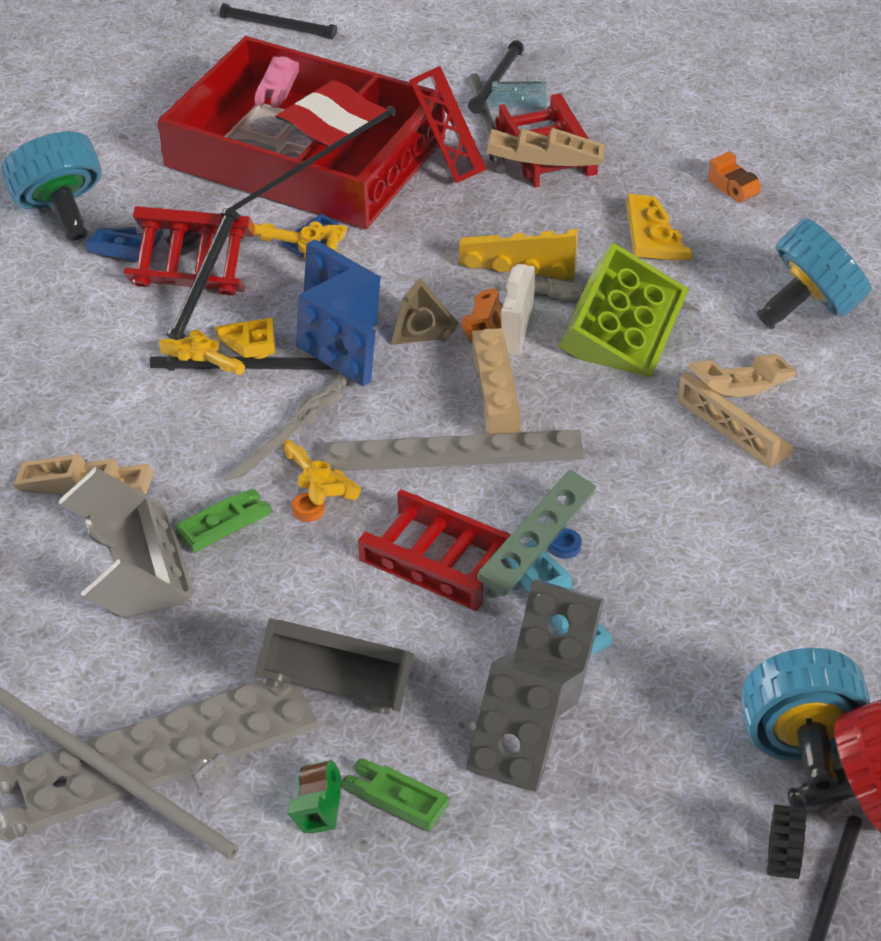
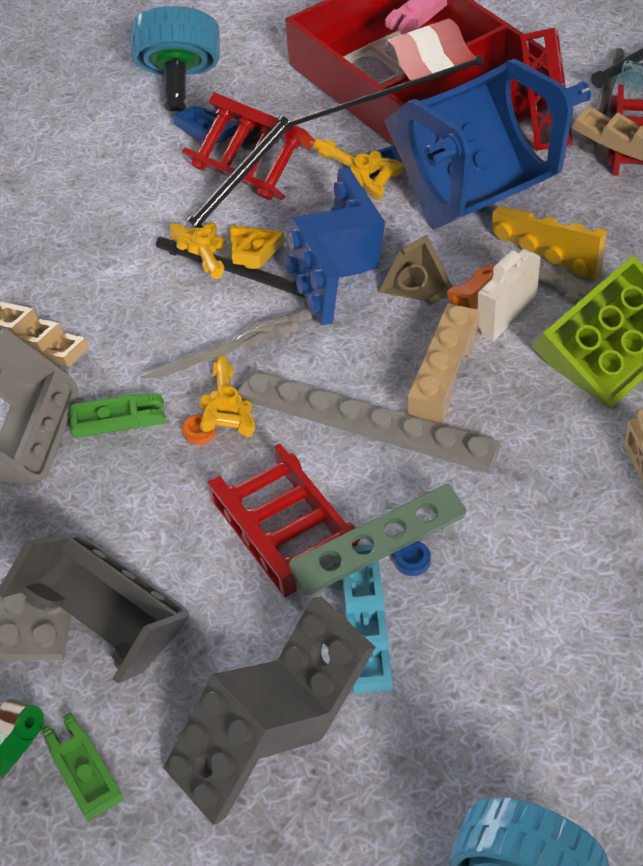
camera: 30 degrees right, 5 degrees up
(409, 193) = (467, 144): none -> blue piece

